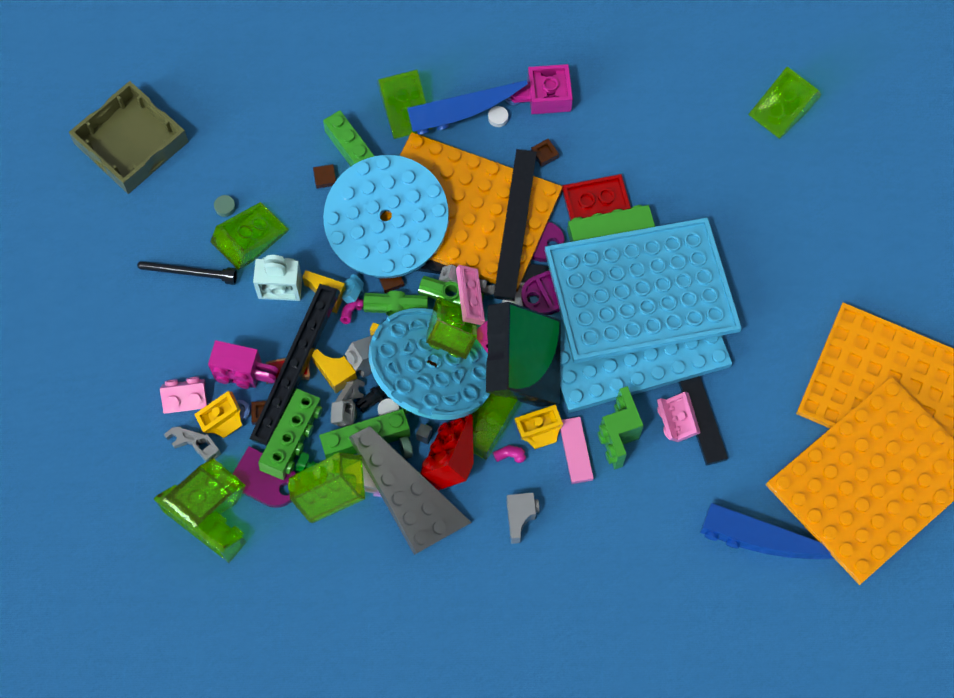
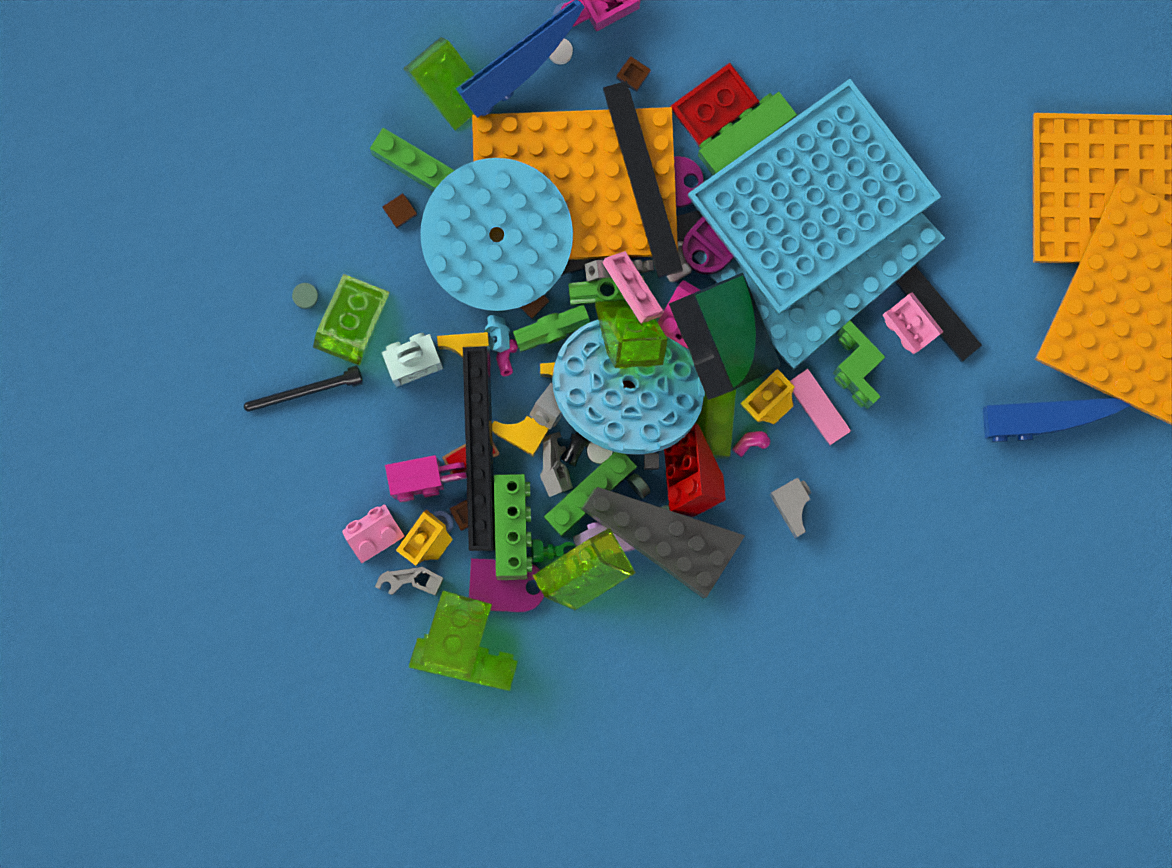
camera: 25 degrees left, 15 degrees up
(128, 137) = (156, 262): olive tile -> none

